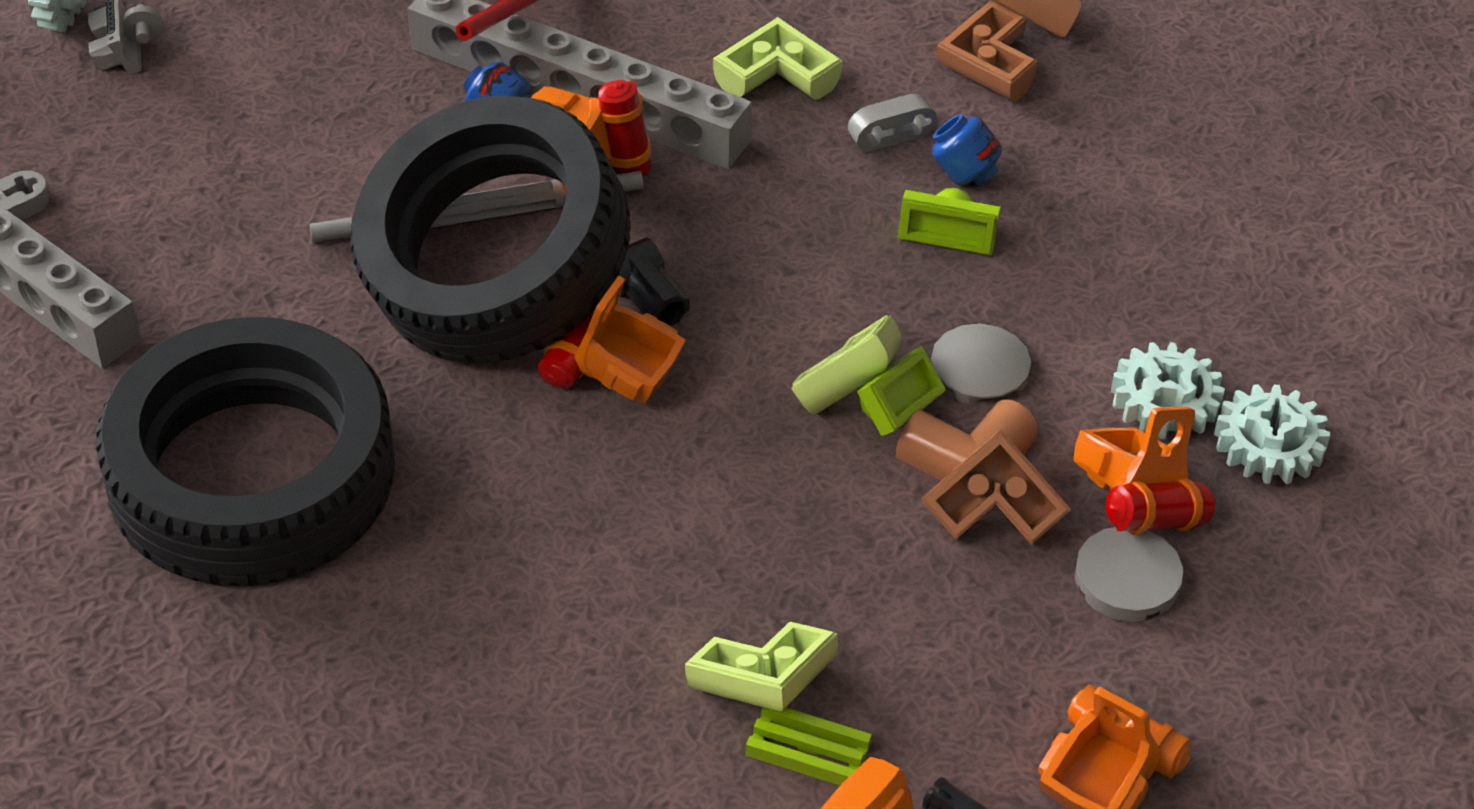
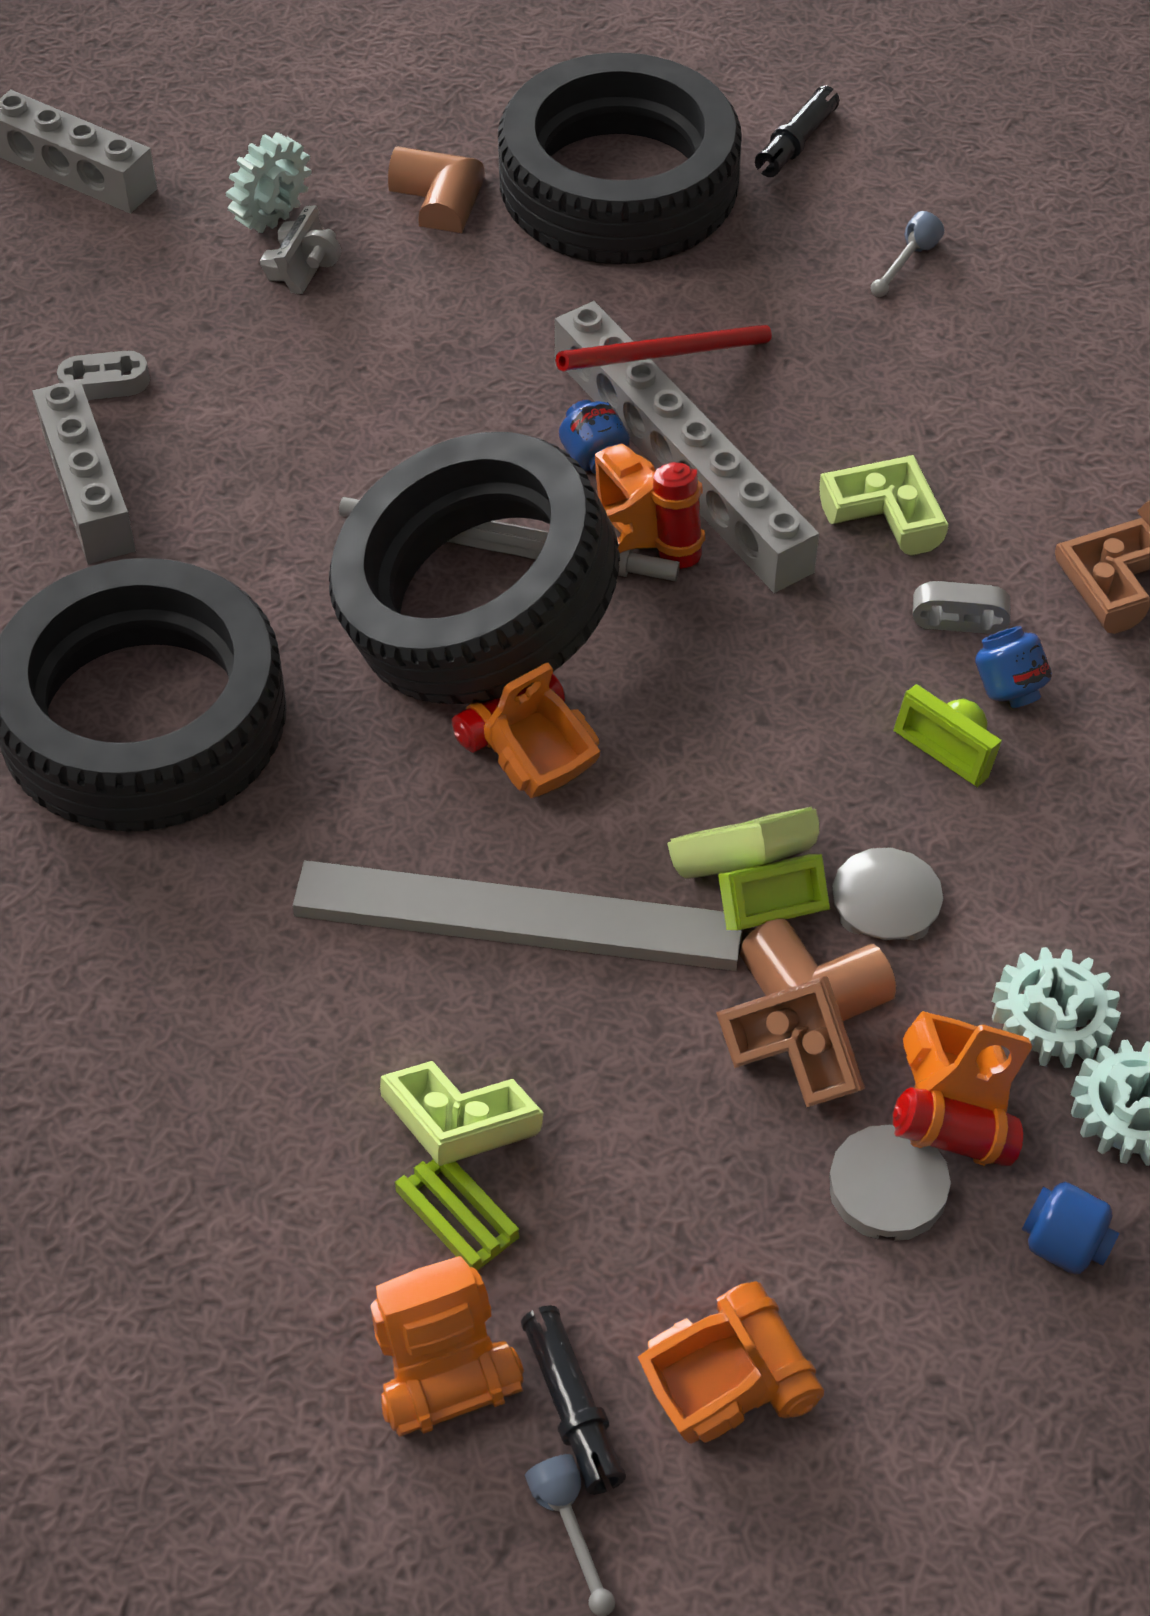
camera: 30 degrees right, 5 degrees up
(651, 285) = (609, 668): black piece -> none
(691, 500) = (516, 915): none -> light grey tile
(1287, 542) = (1070, 1228): none -> blue head

